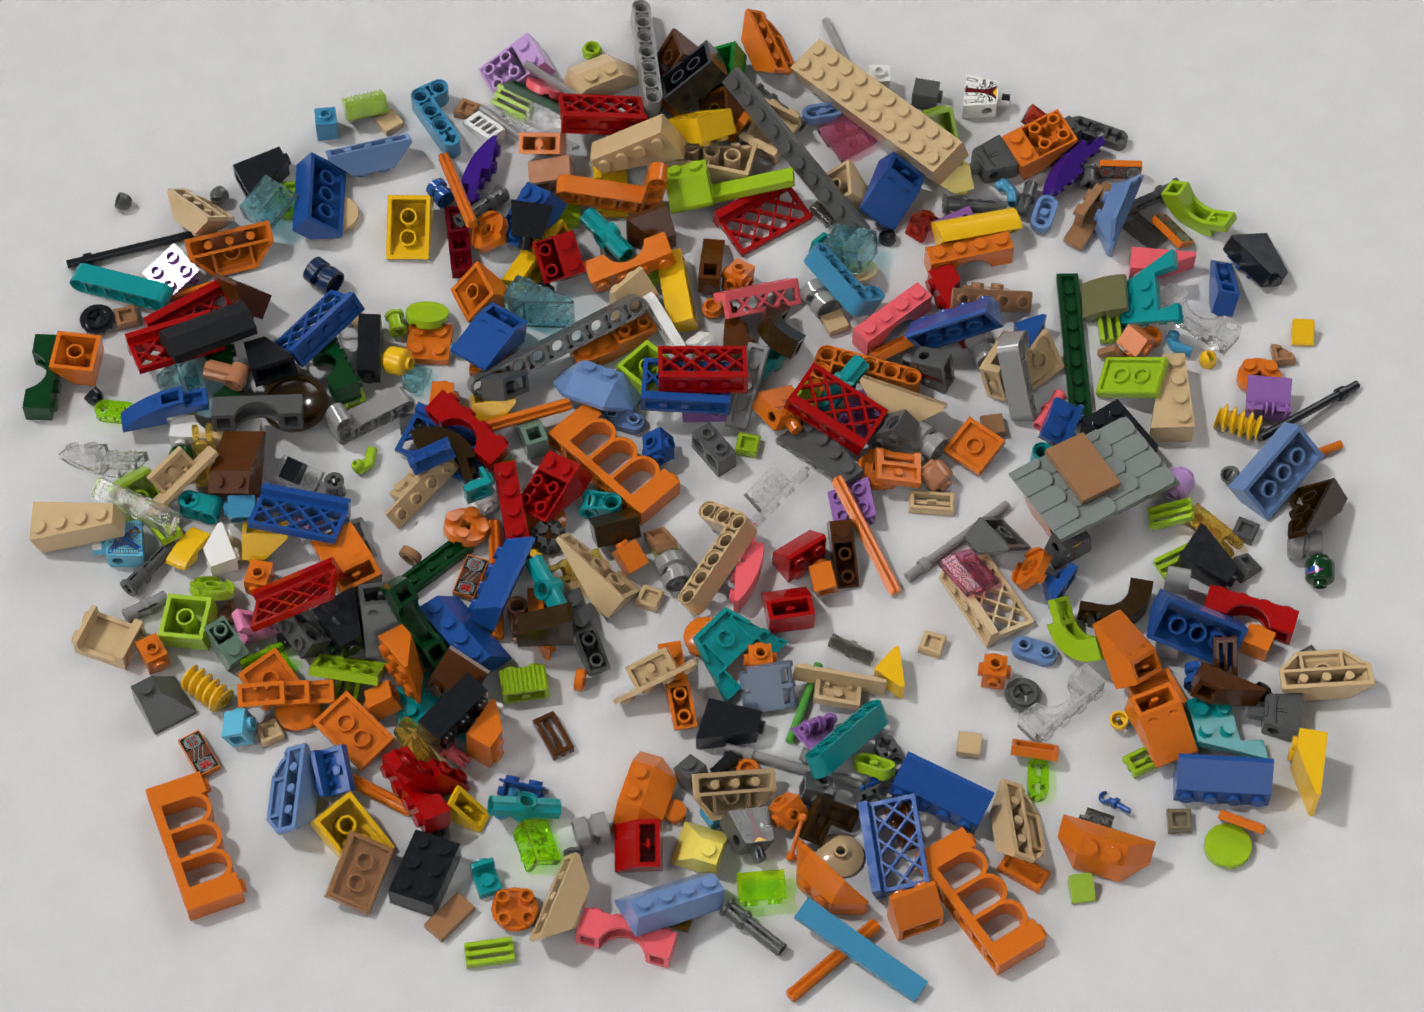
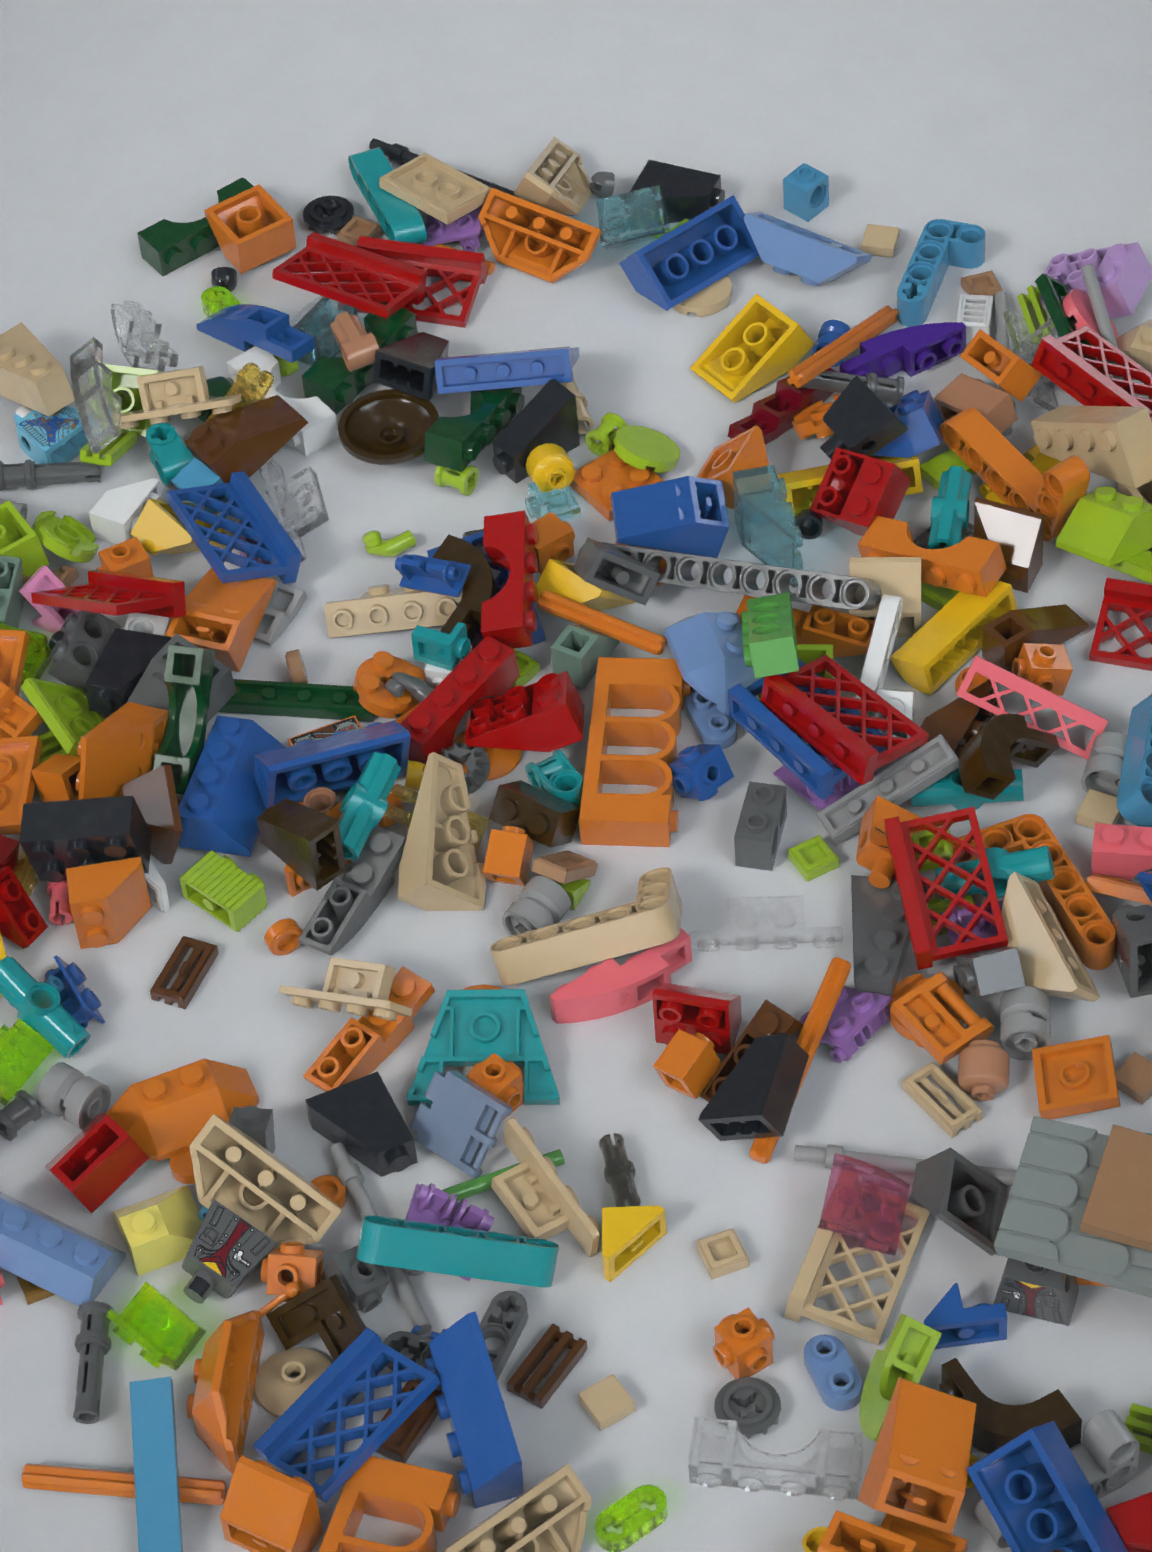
camera: 55 degrees right, 10 degrees down
(123, 201) = (505, 125): dark grey hinge -> none
(150, 262) = (435, 188): none -> tan tile
(187, 548) = (89, 486): yellow slope -> none
(208, 332) = (386, 284): black piece -> none
(232, 411) = (305, 379): dark grey arch -> none
(236, 291) = (483, 288): reddish brown slope -> none
(293, 470) = (296, 490): black slope -> none
(322, 275) = (594, 332): dark blue wheel -> none
(337, 486) = (320, 544): dark grey bush -> none
(365, 105) = (870, 201): lime brick -> none
(367, 416) = (441, 498): light grey beam -> none
(485, 516) = (414, 685): none -> dark grey arm
(629, 355) = (770, 635): none -> bright green brick
(649, 598) = (479, 923): tan tile -> none
(726, 762) = (310, 1163): black pin -> none
(788, 610) = (601, 1062): red slope -> none
(872, 563) = (758, 1091): none -> black slope
(874, 766) = (452, 1306): lime plate -> none
(922, 736) = (564, 1341): none -> reddish brown tile
(1032, 569) = (937, 1272): orange plate -> none
(1035, 750) = (670, 1479): orange tile -> none

